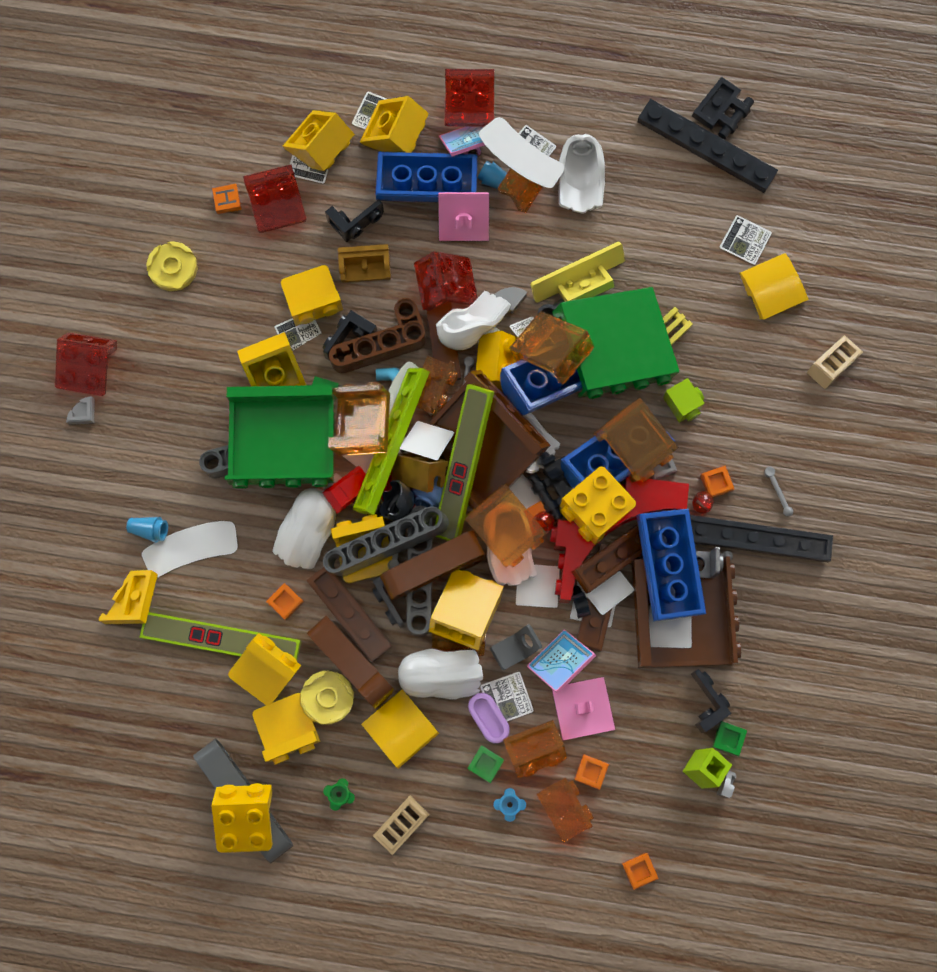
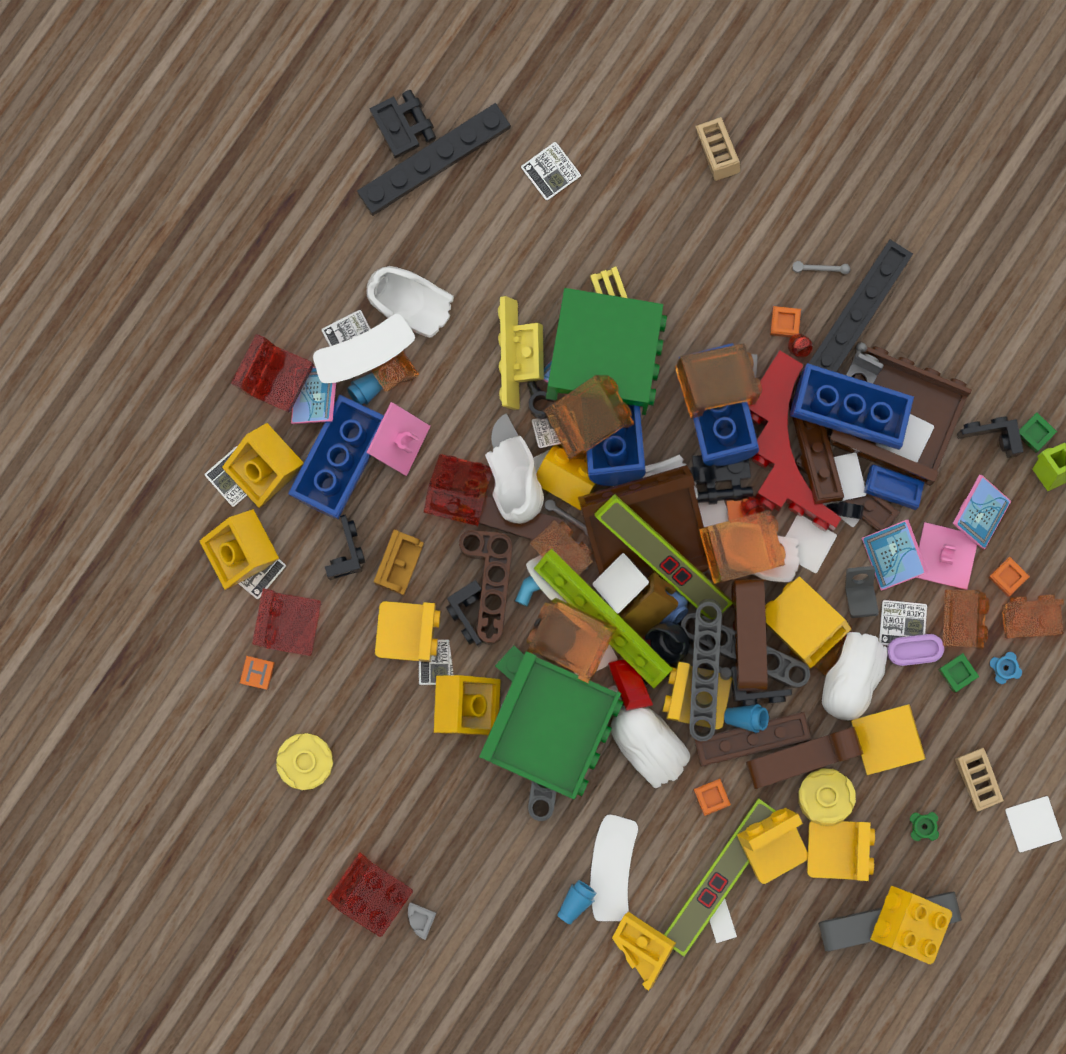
camera: 65 degrees left, 5 degrees up
(182, 658) = (722, 924): none -> white sticker
(364, 600) = (747, 717): none -> dark azure cone
(384, 892) = (1033, 824): none -> white sticker
(596, 504) = (766, 448): yellow bracket -> none
(620, 635) = (894, 487): none -> blue tile
(635, 720) = (981, 512): none -> piece
(684, 400) = (692, 313): lime brick -> none
(774, 286) = (614, 168): yellow slope -> none

